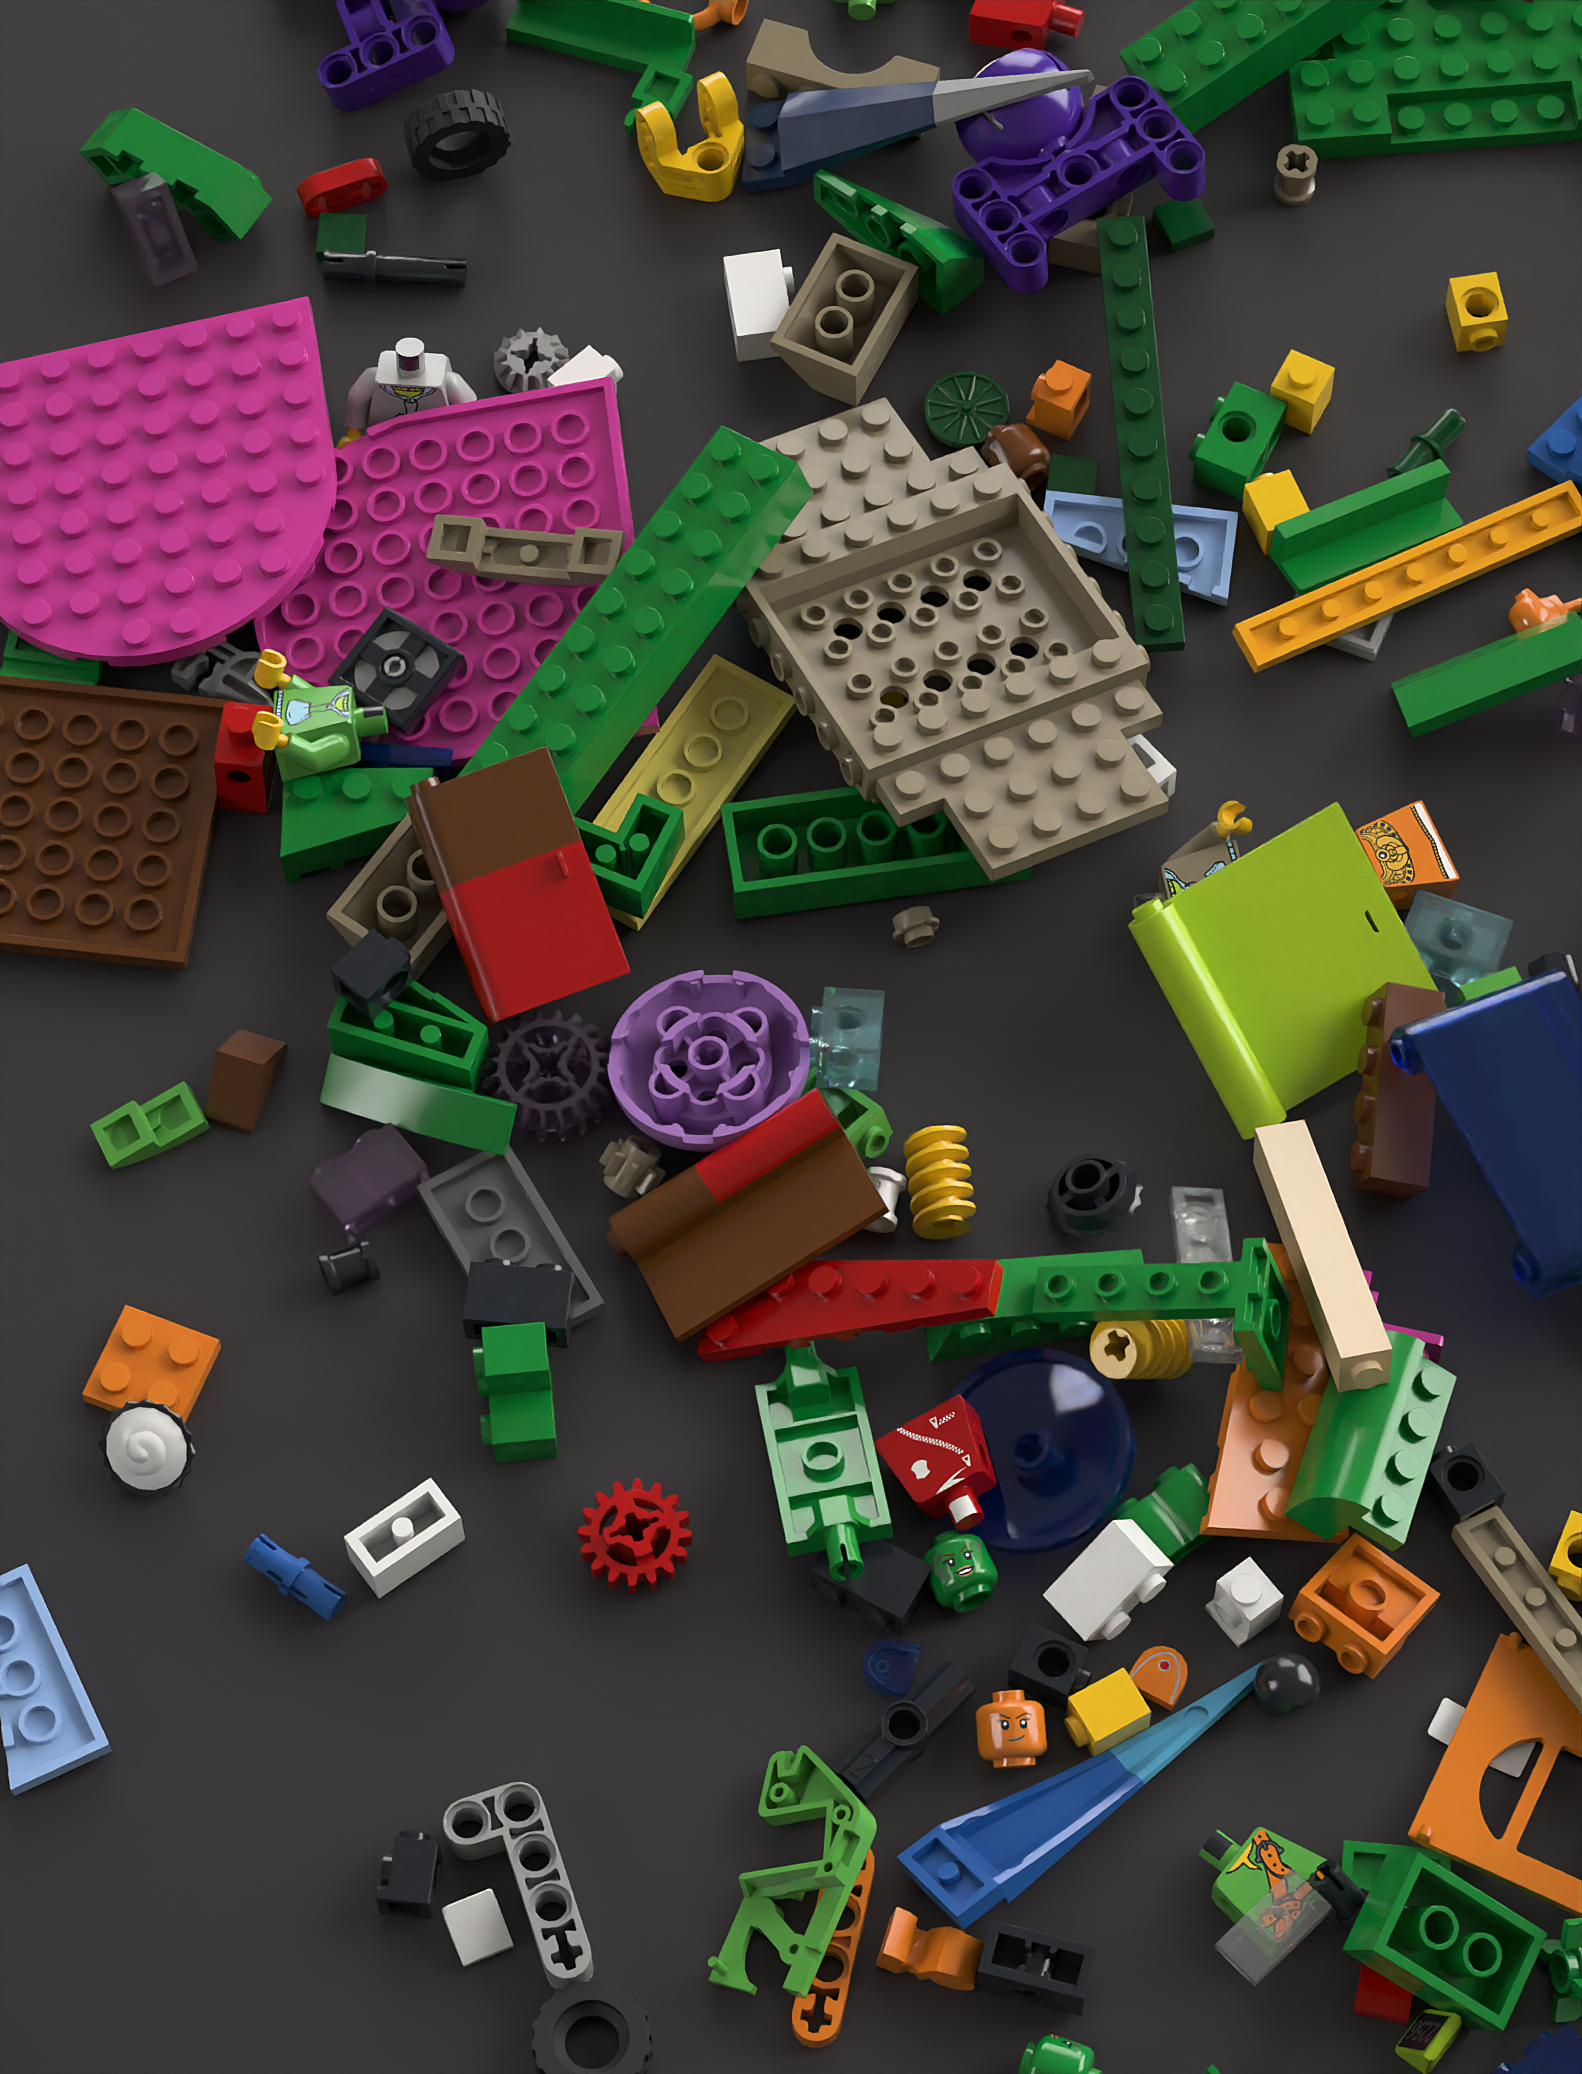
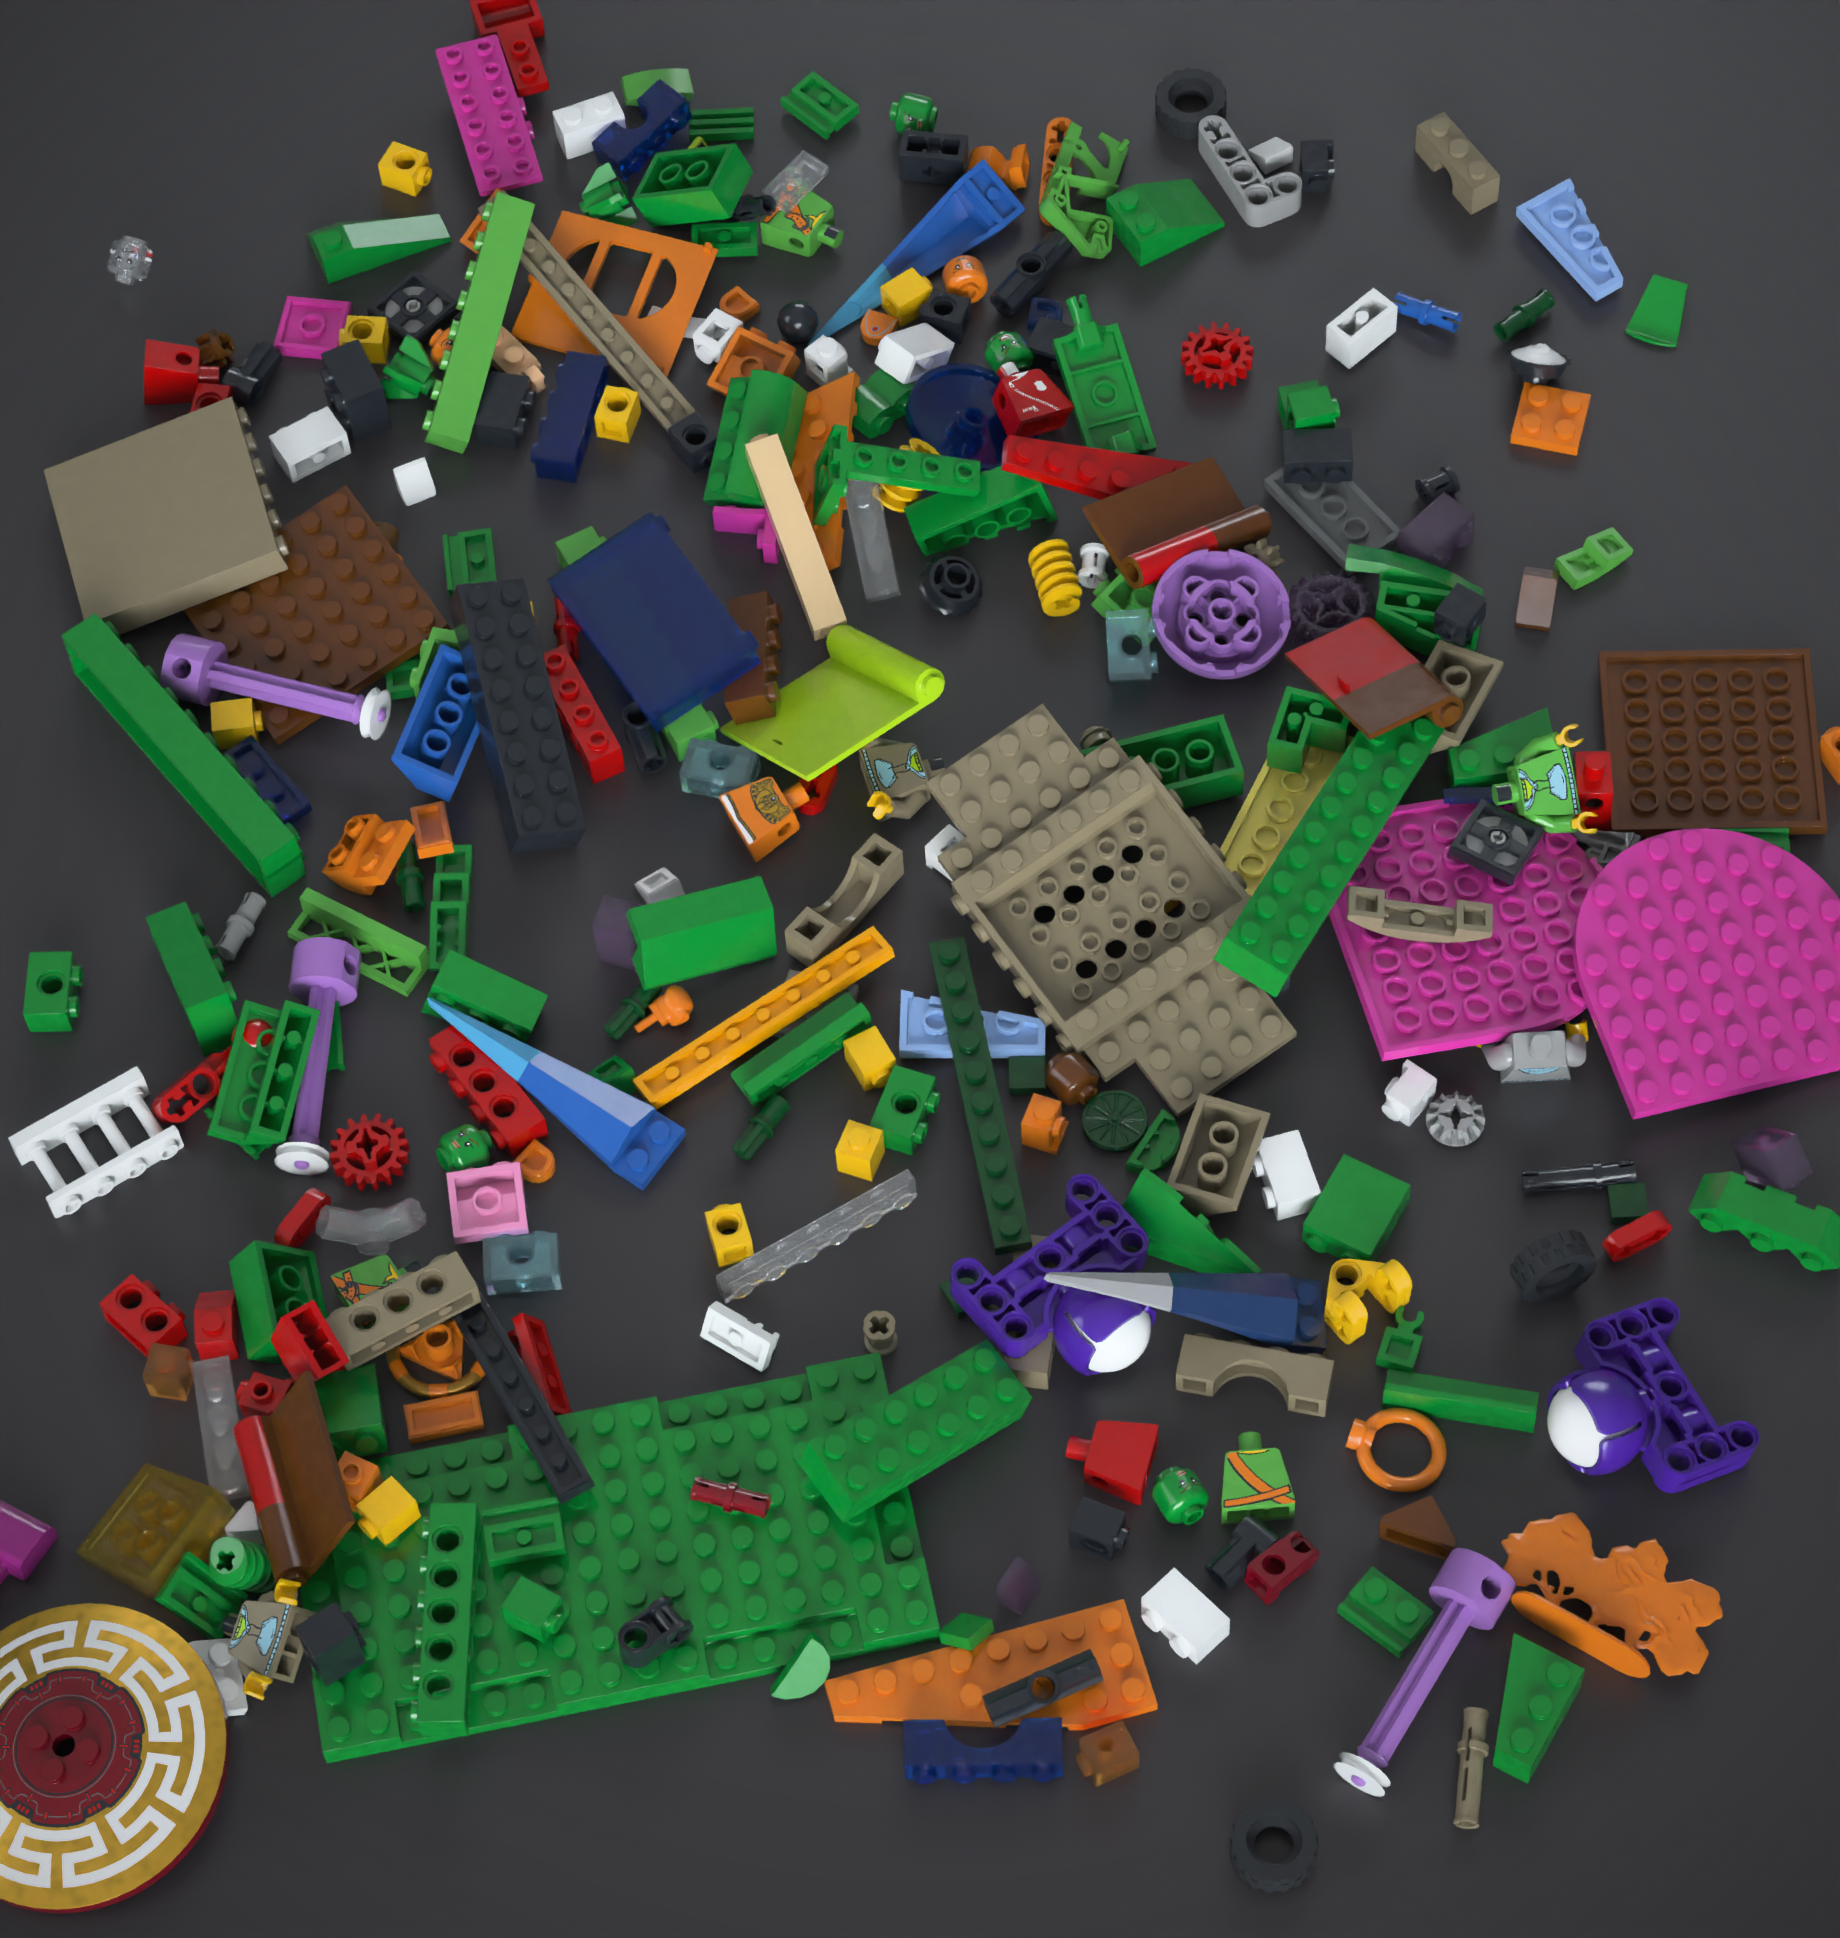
camera: 175 degrees right, 5 degrees down
(146, 1550) = (1524, 315): none -> dark green pin
(183, 1845) = (1472, 176): none -> dark tan arch
(674, 1816) = (1160, 217): none -> green slope
(679, 249) = (1355, 1211): none -> green brick
(915, 372) = (1157, 1147): none -> green tile
(1262, 746) = (868, 879): none -> dark tan arch
(1363, 298) = (809, 1240): none -> clear plate
(1380, 1752) = (739, 304): none -> orange tile
(1417, 1653) = (714, 335): none -> white brick
(1485, 203) = (739, 1336): none -> white plate
(1547, 793) = (659, 886): none -> white slope

